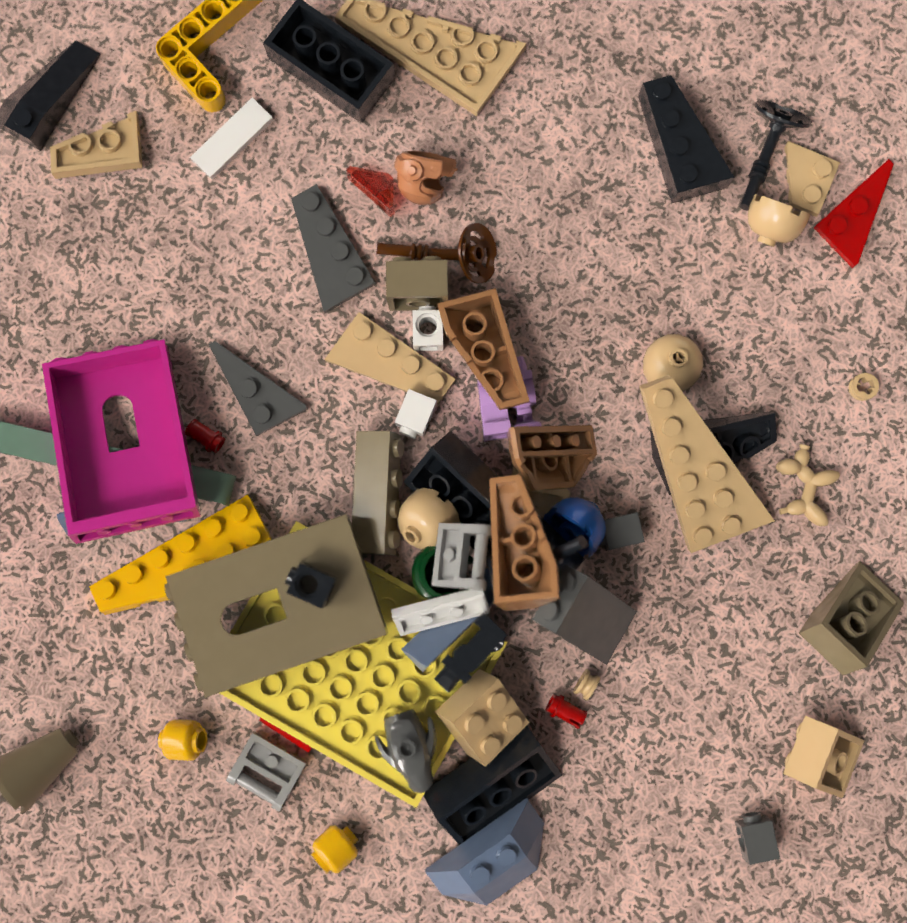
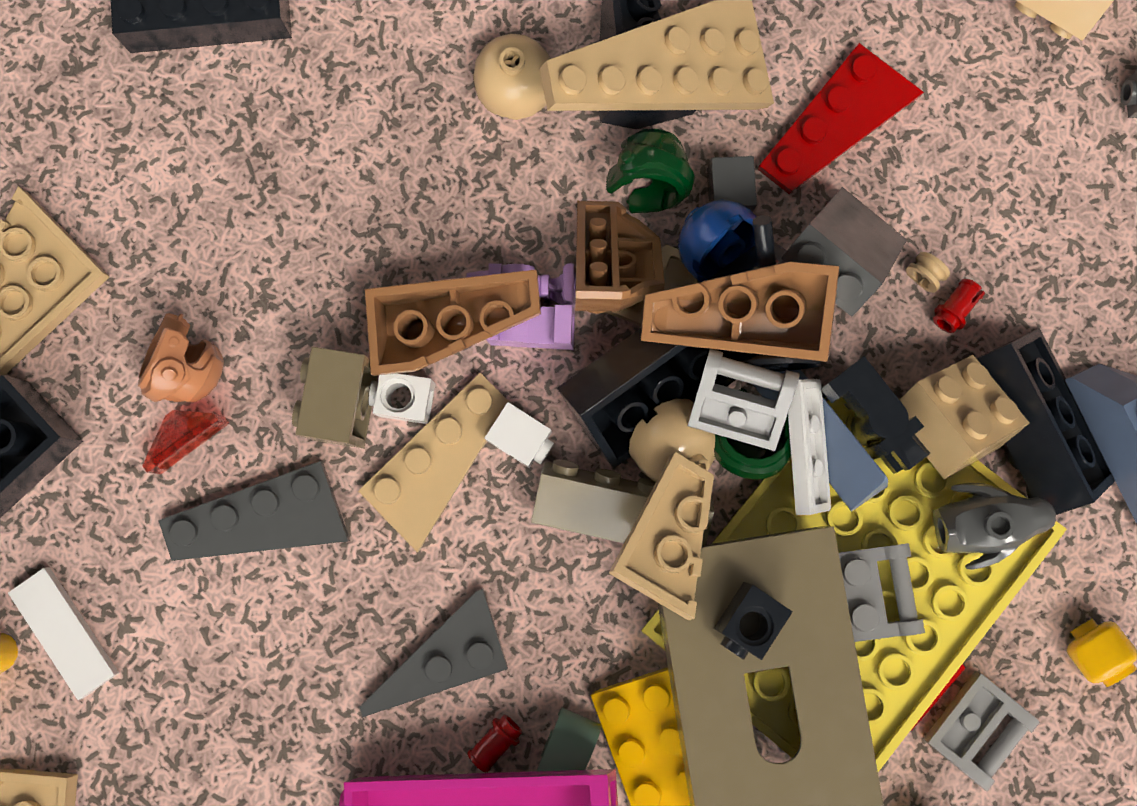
camera: 80 degrees left, 0 degrees up
(343, 667) = (866, 596): none -> light grey plate
(357, 519) = (667, 537): none -> tan wing
(464, 254) = (306, 322): reddish brown dish -> none
(624, 475) = (654, 156): none -> dark green helmet
(699, 609) = (845, 111): none -> red wing

